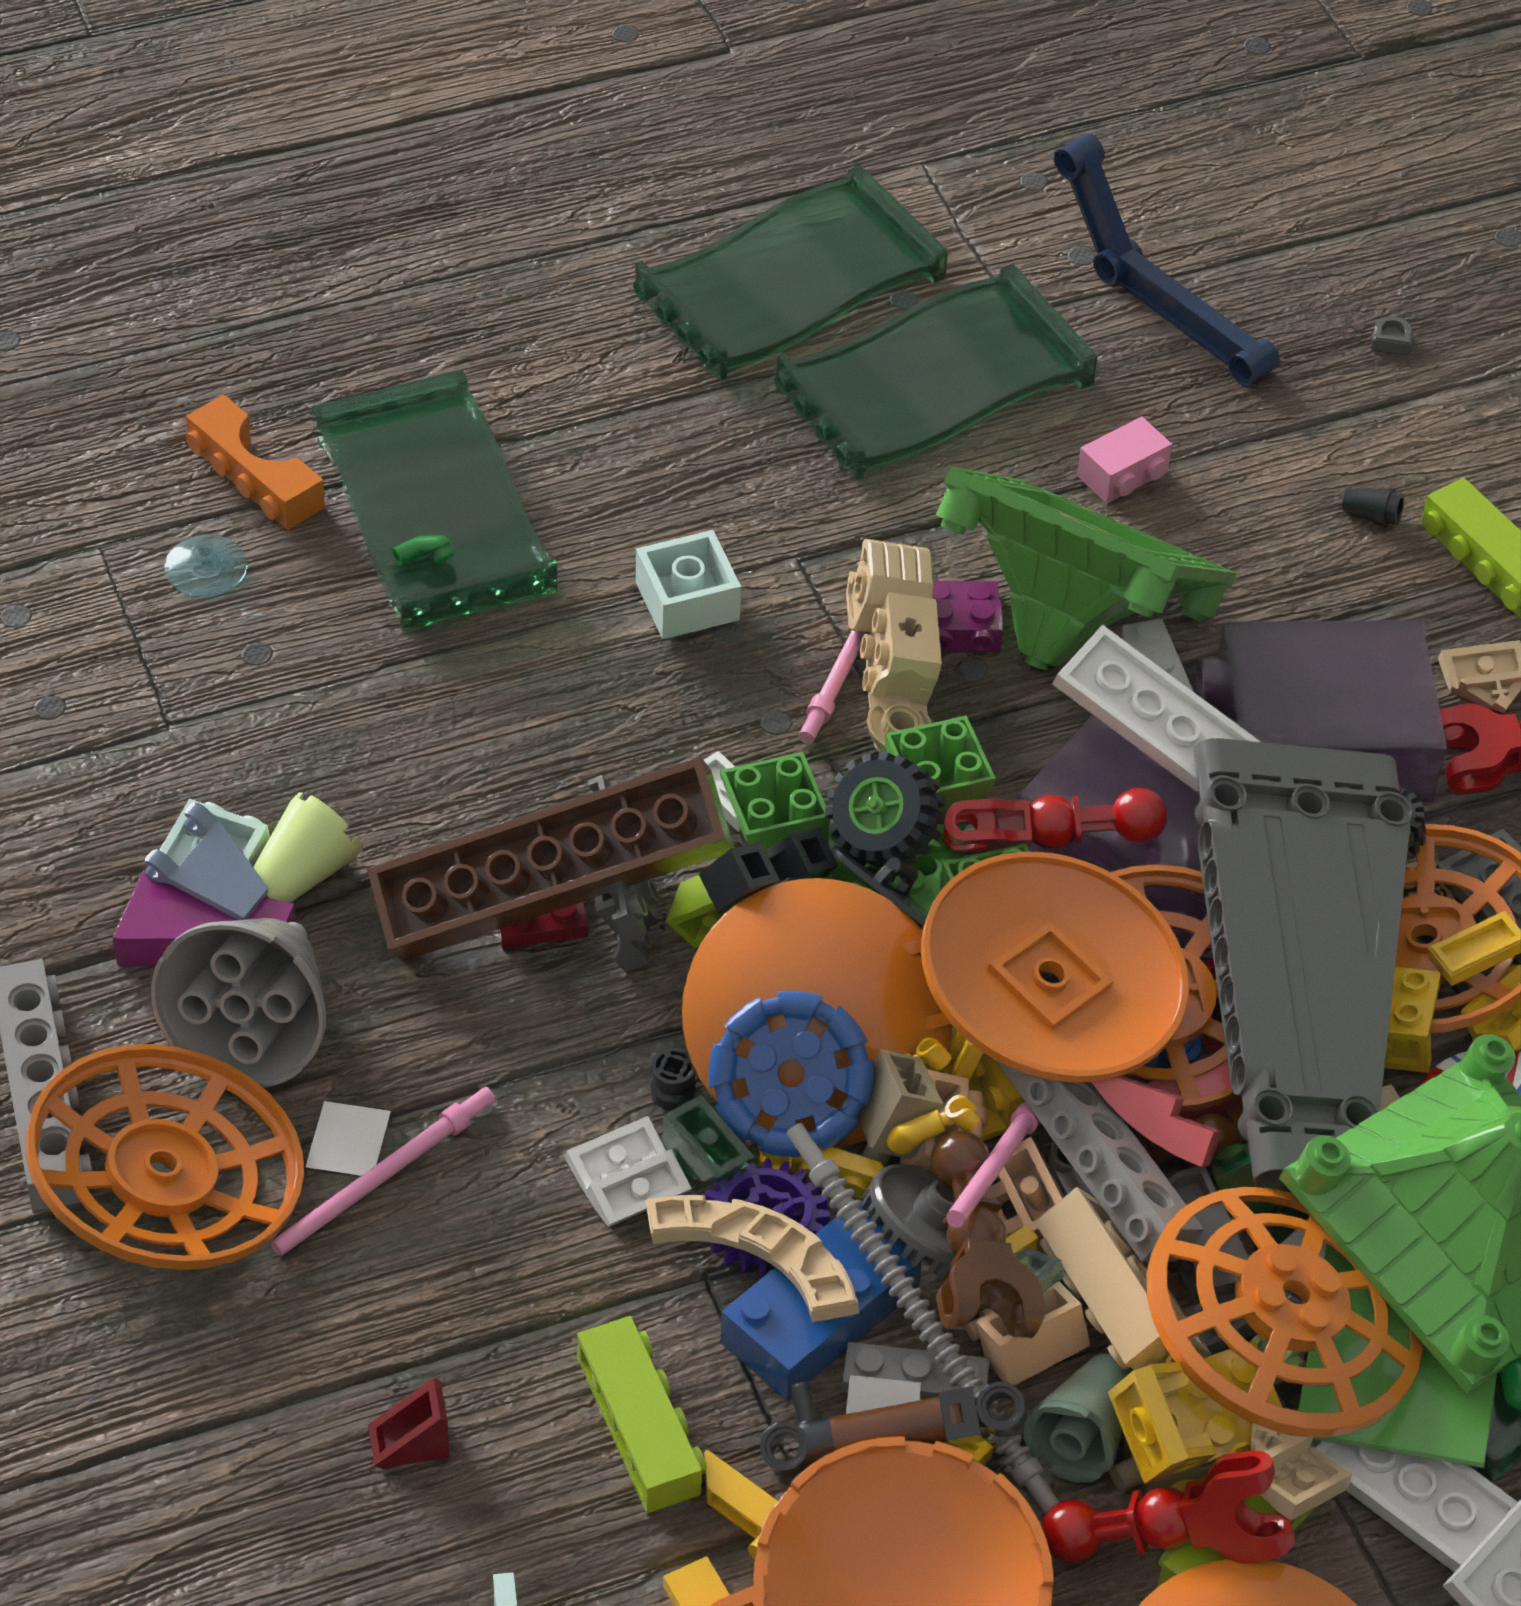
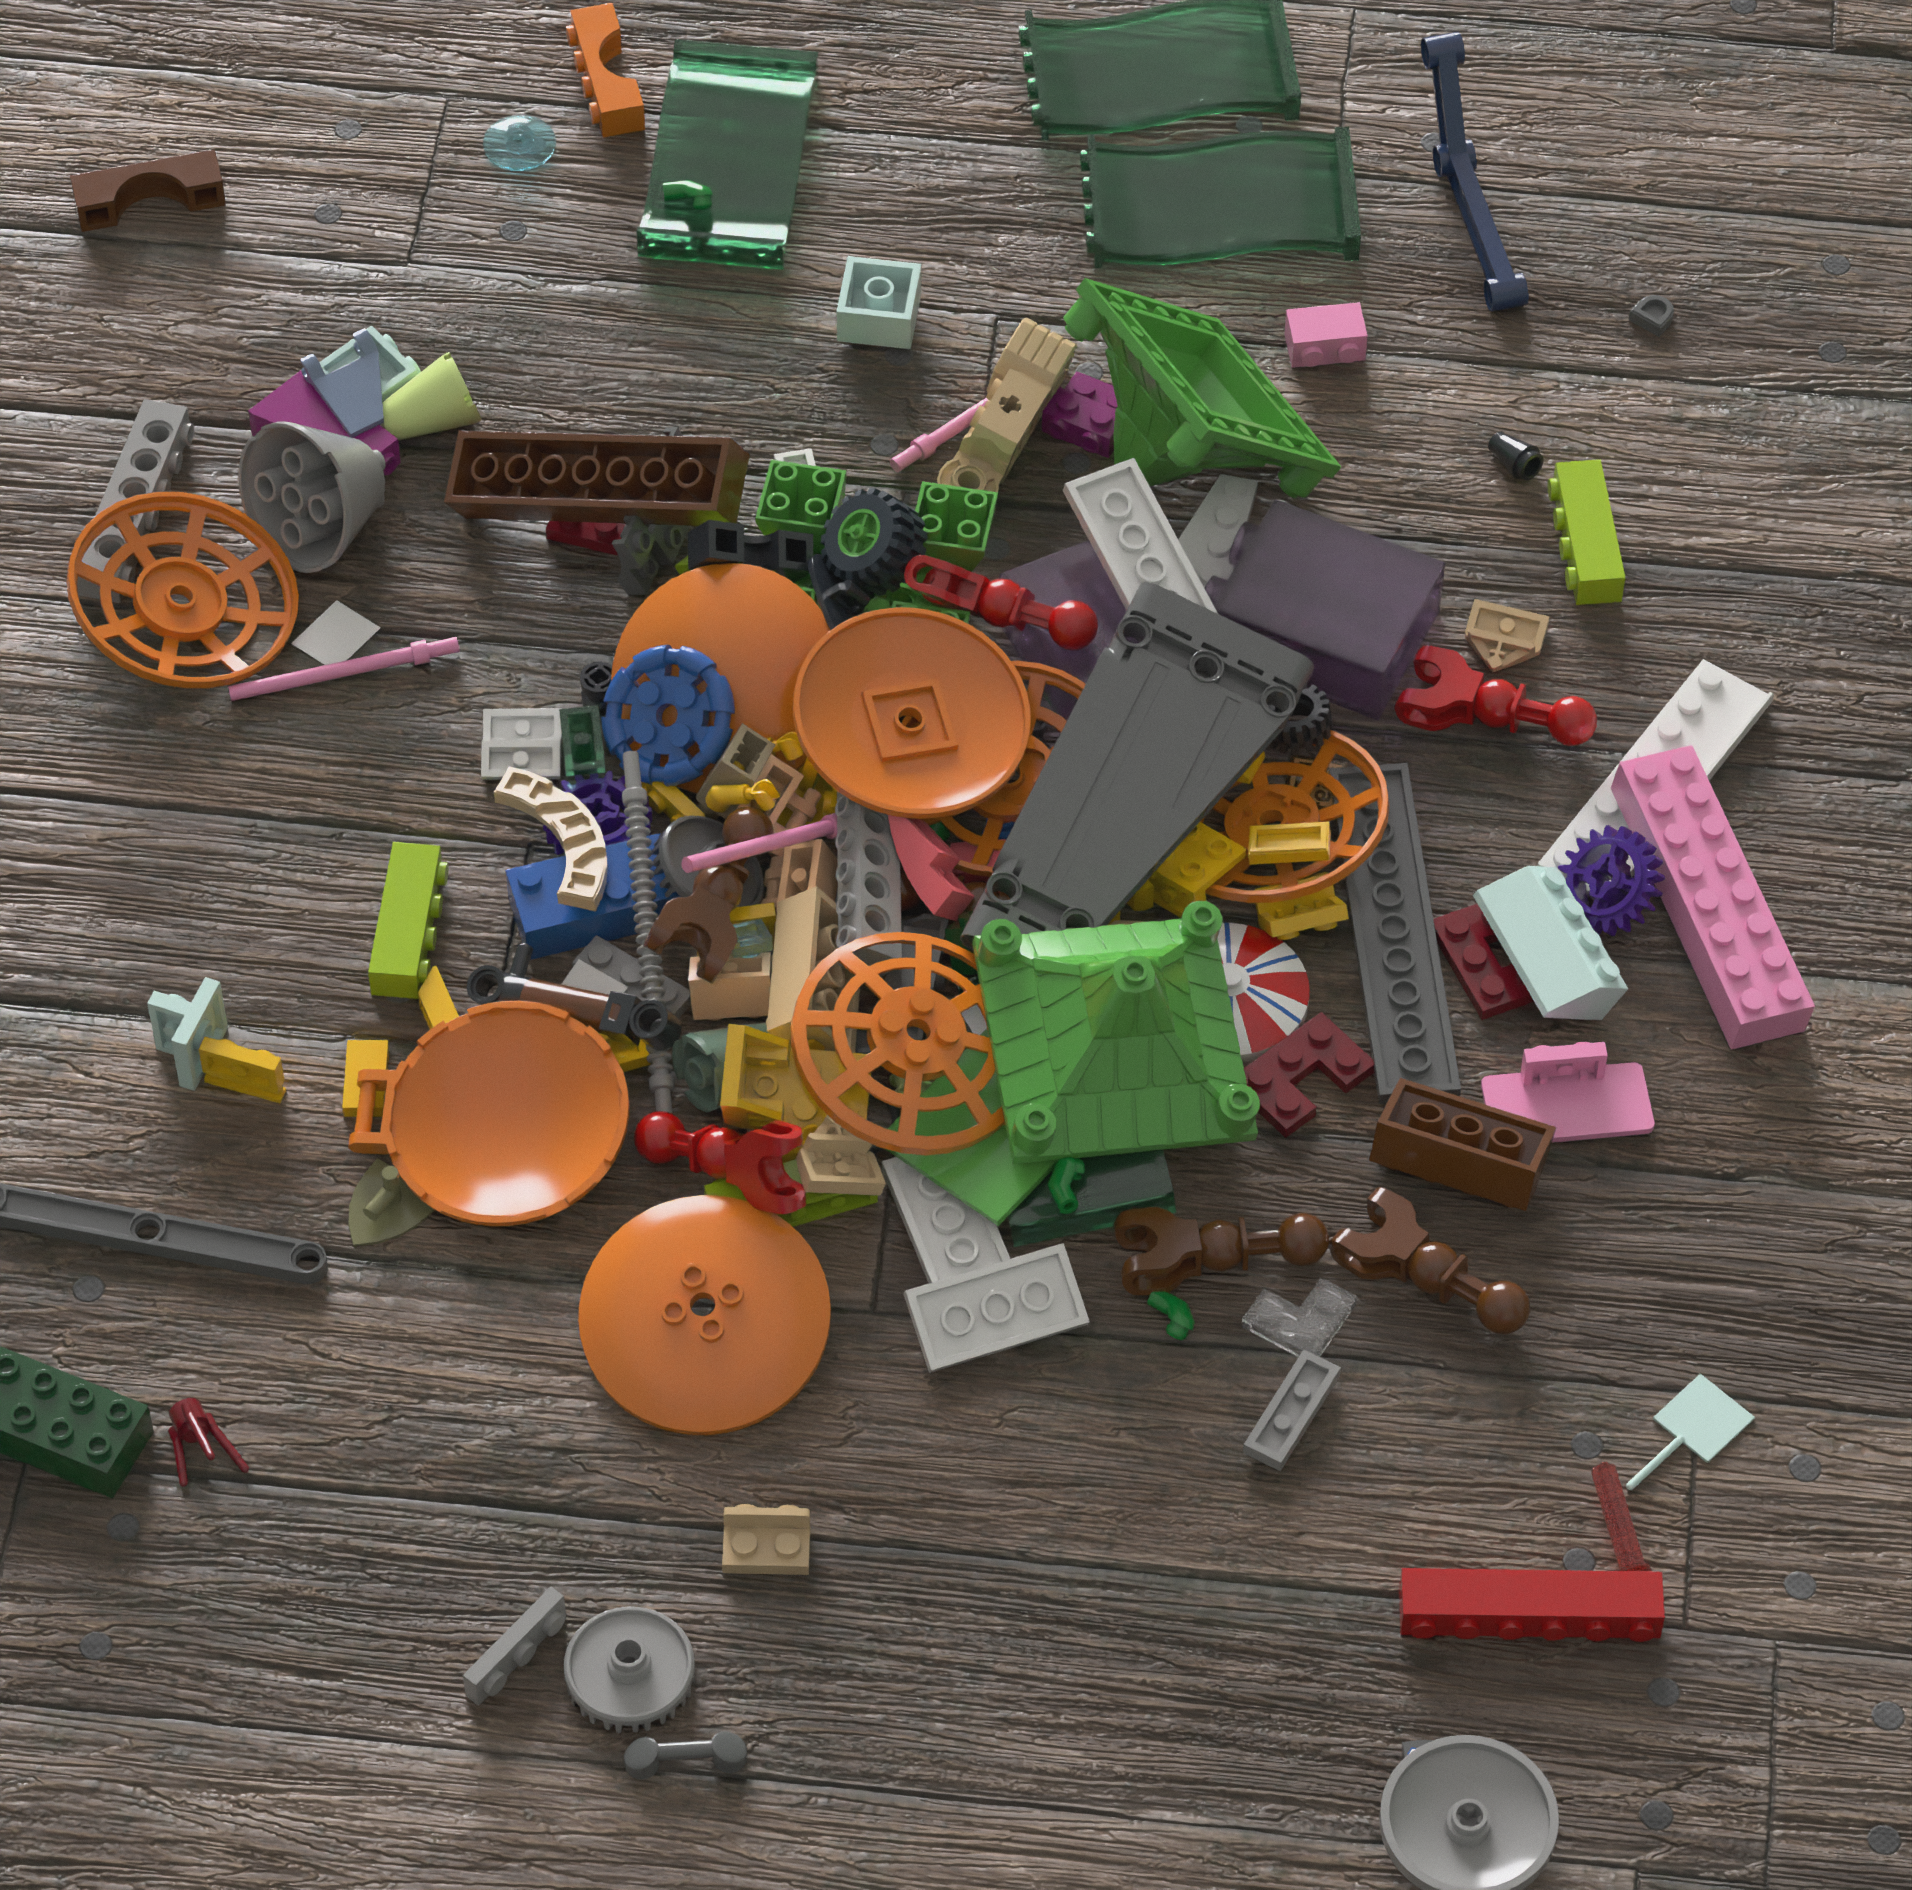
camera: 30 degrees right, 5 degrees up
(412, 1429) = (240, 862): dark red slope -> none

